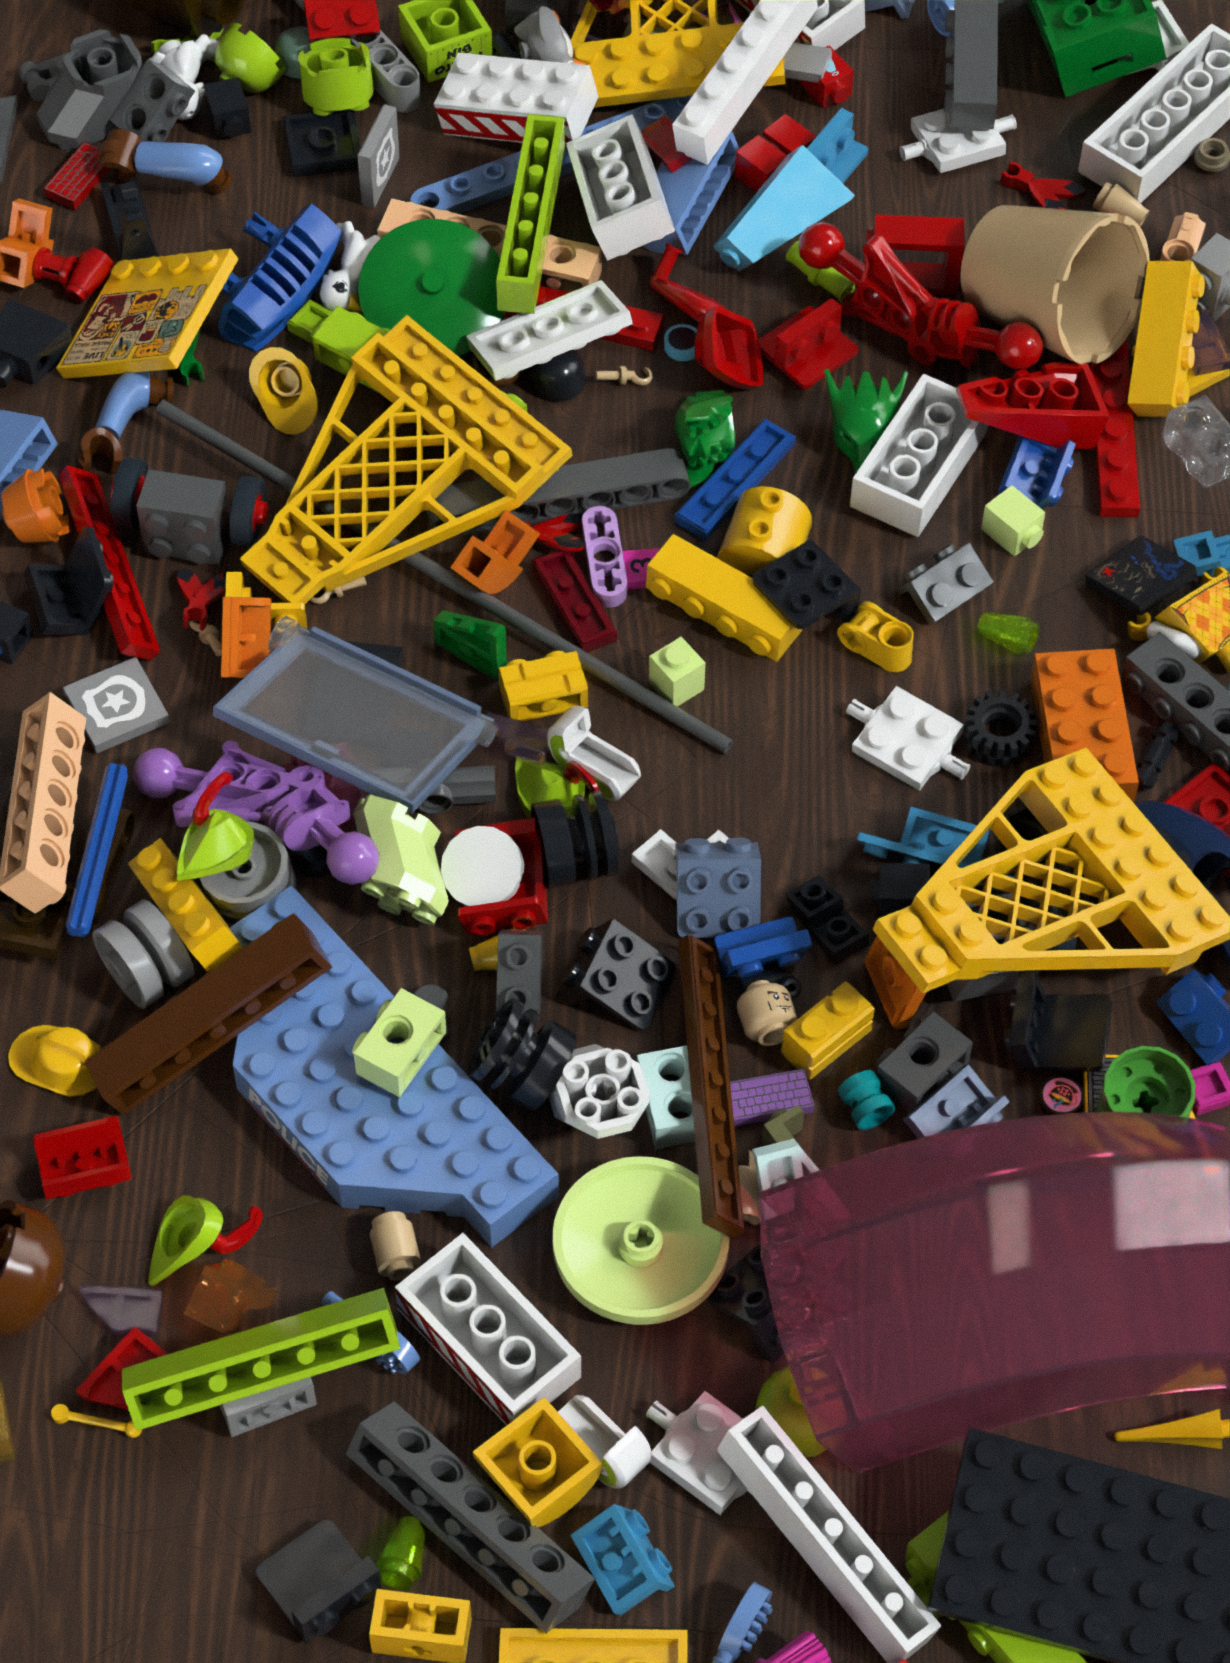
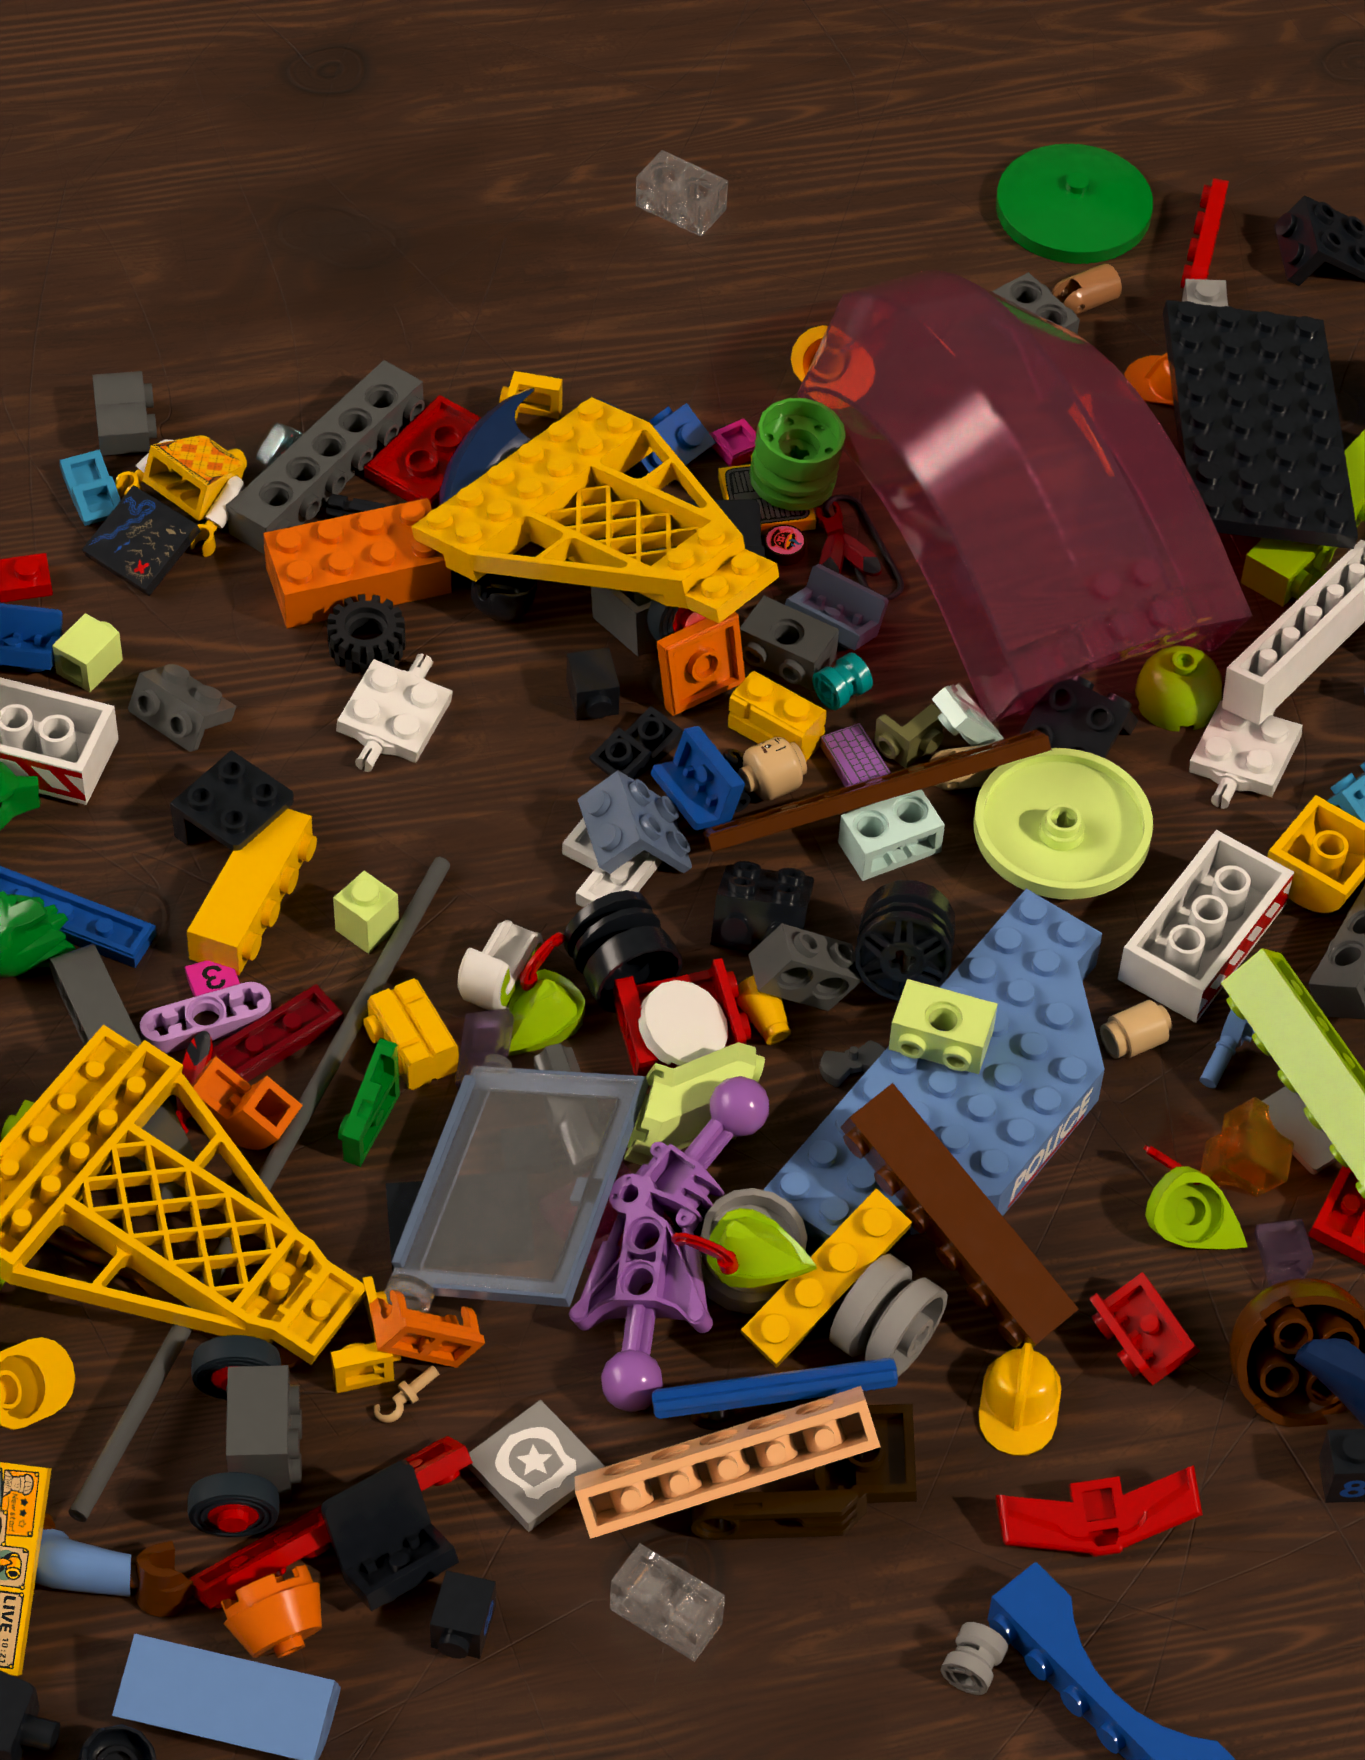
camera: 105 degrees left, 5 degrees down
(198, 595) = (355, 1411): red piece -> none
(600, 1092) = (931, 847): white brick -> none
(619, 1452) = (1290, 794): white animal -> none
(764, 528) = (150, 872): yellow brick -> none
(878, 637) = (274, 740): yellow piece -> none
(928, 840) = (529, 662): dark azure bracket -> none
(1009, 631) = (237, 639): clear neon green cone -> none

